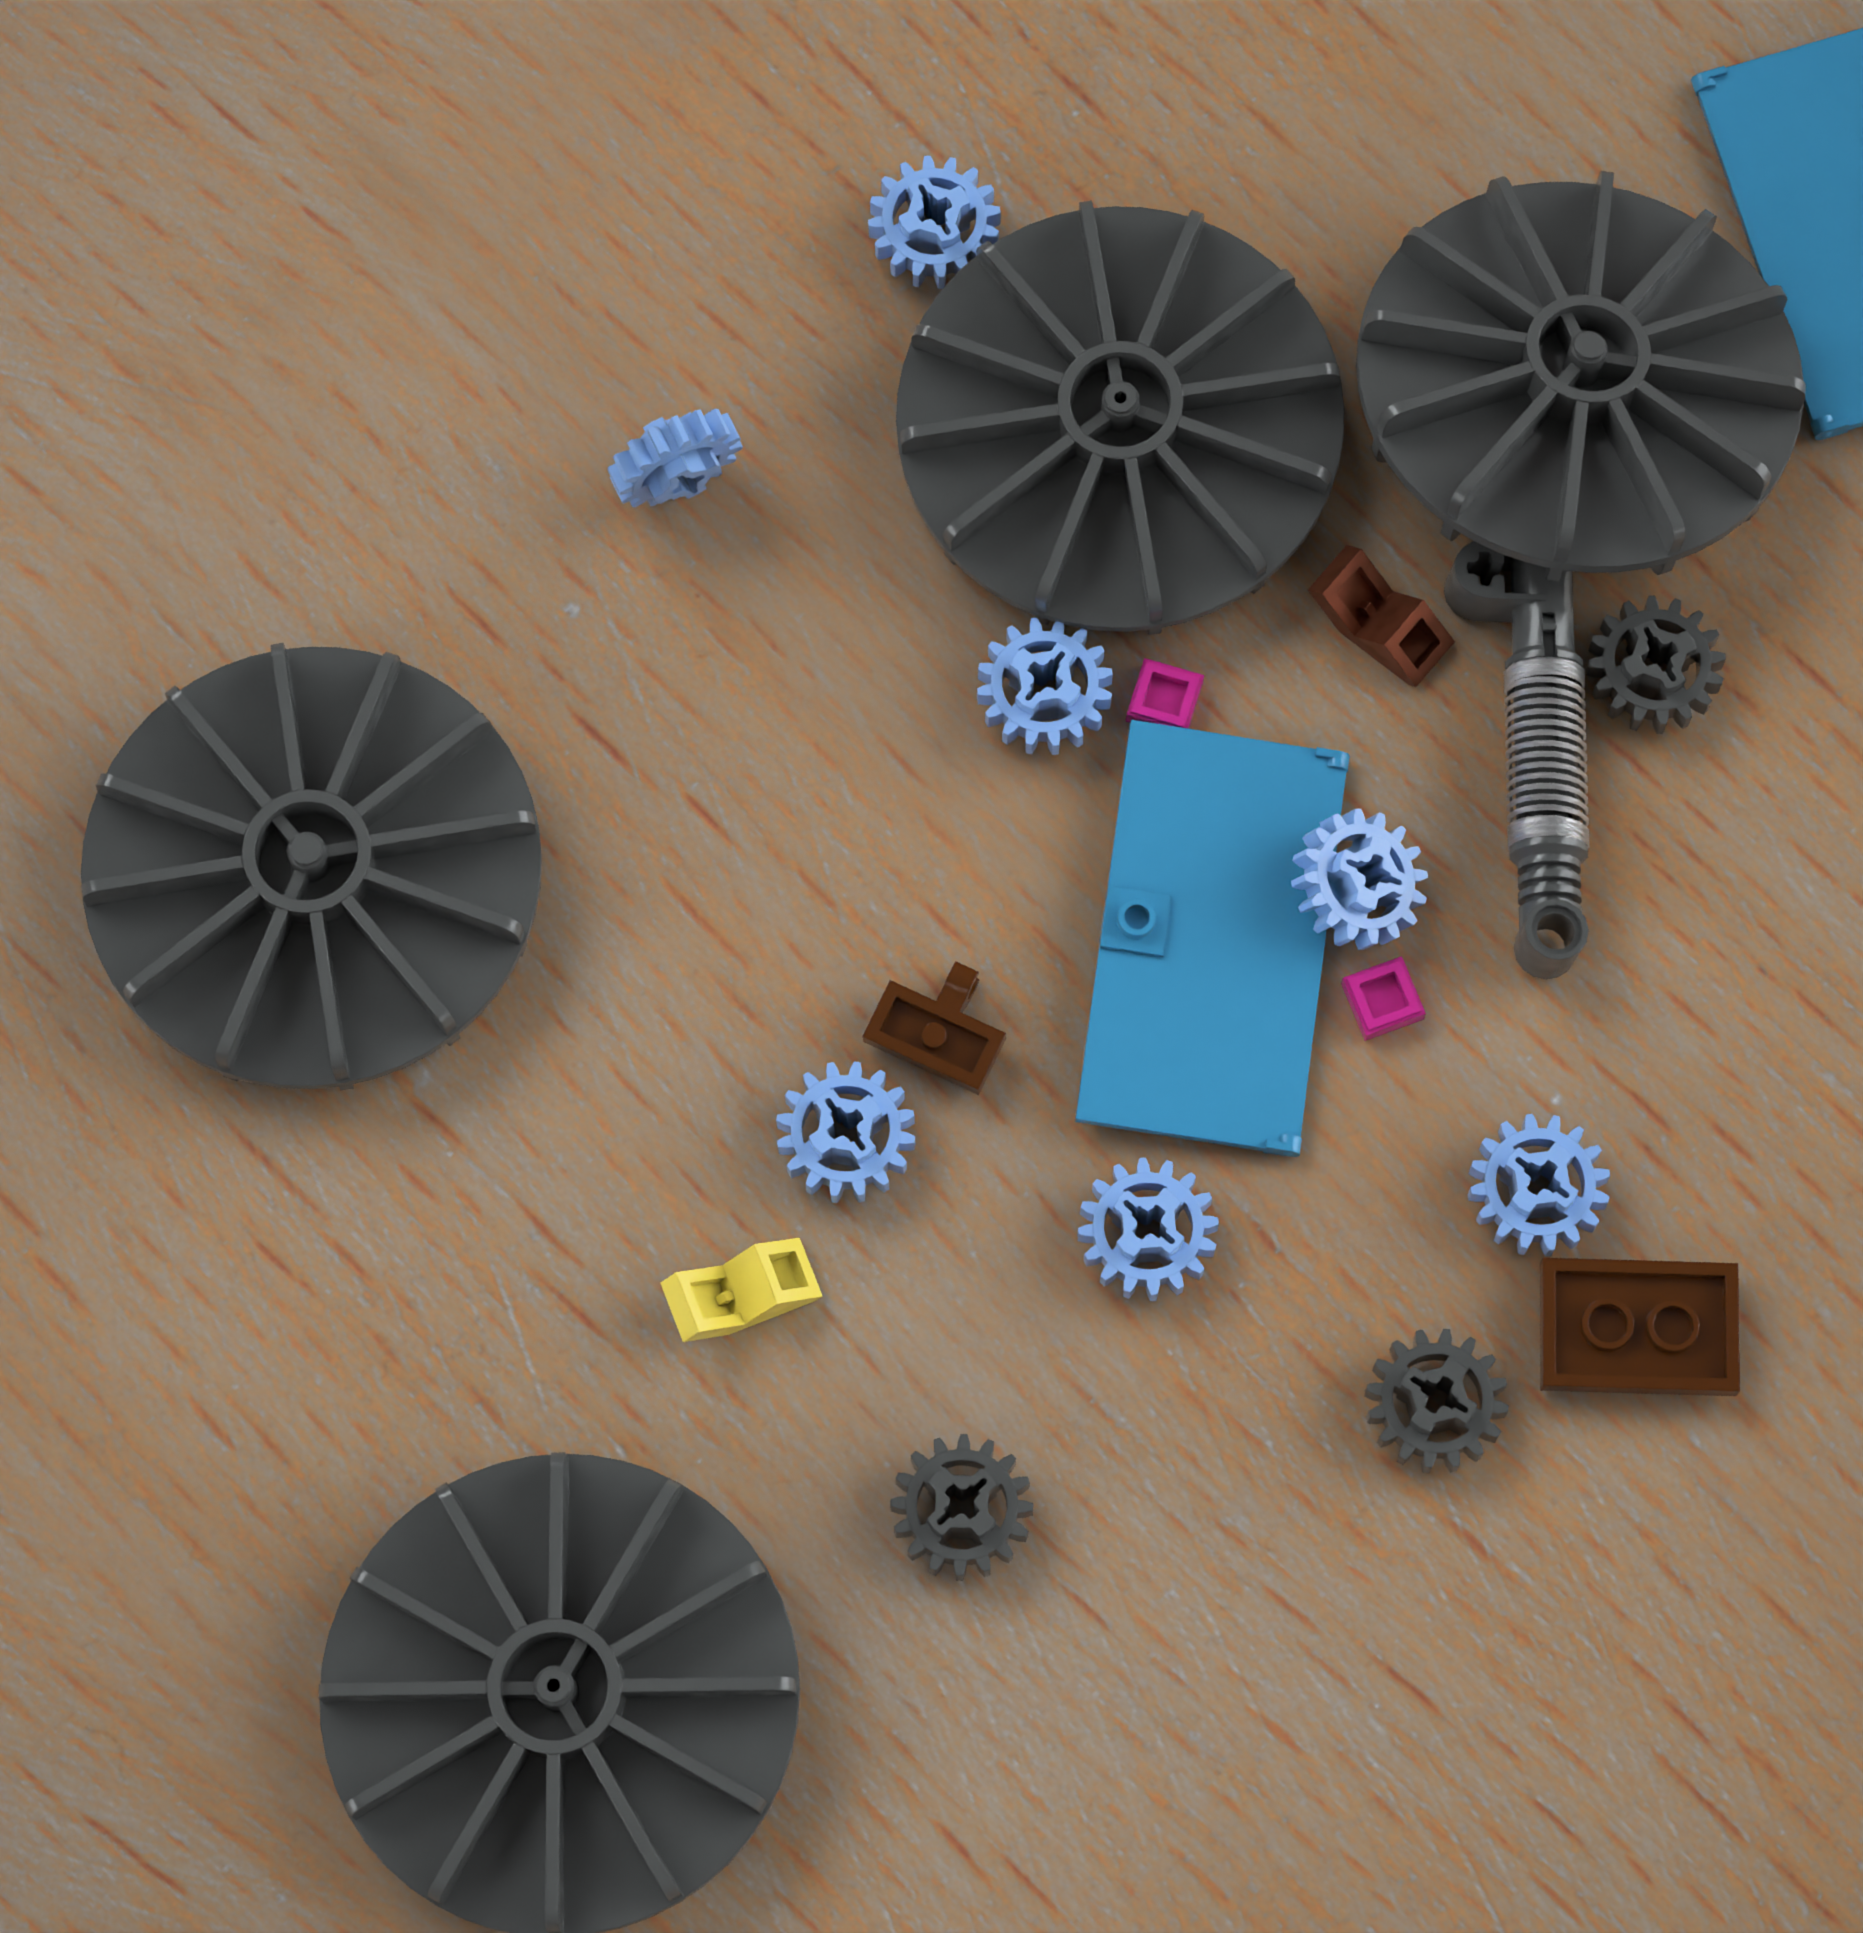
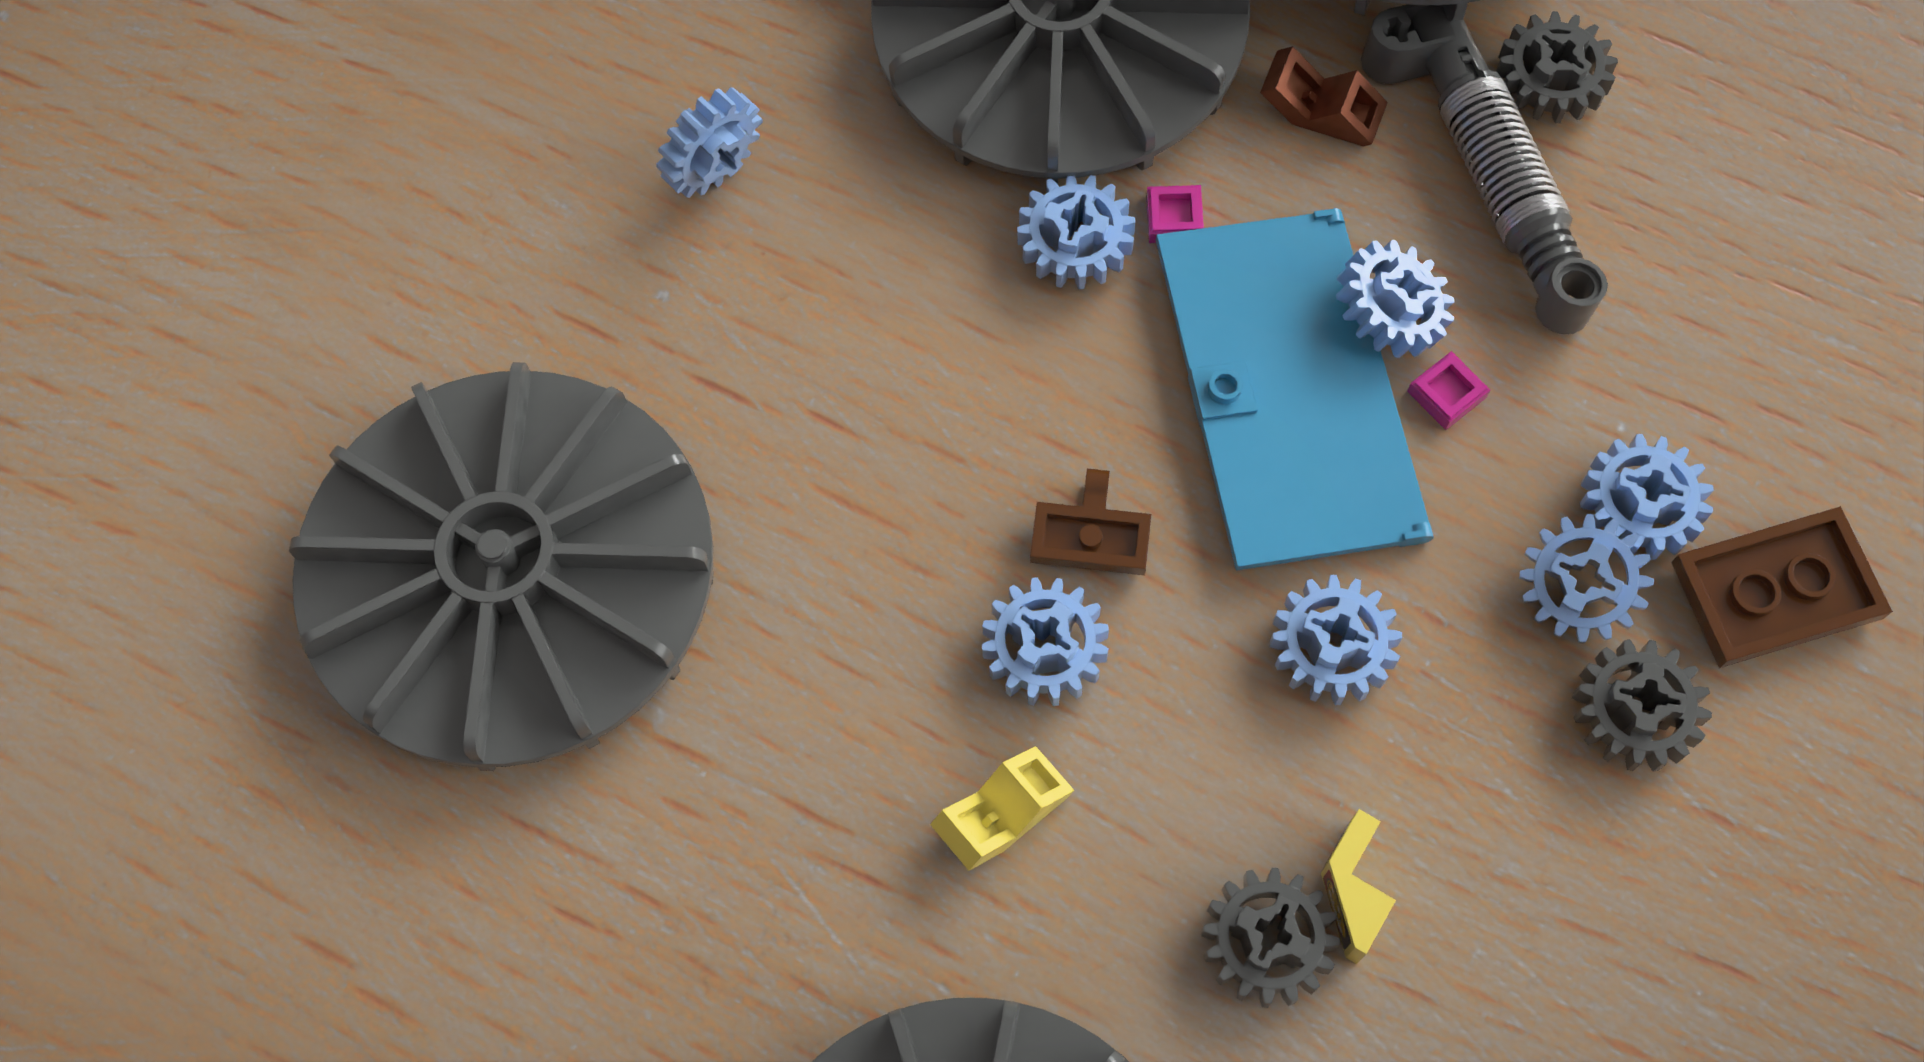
camera: 15 degrees left, 5 degrees down
(1062, 1507) = (1357, 904): none -> light yellow slope
(1412, 1272) = (1602, 544): none -> light blue gear

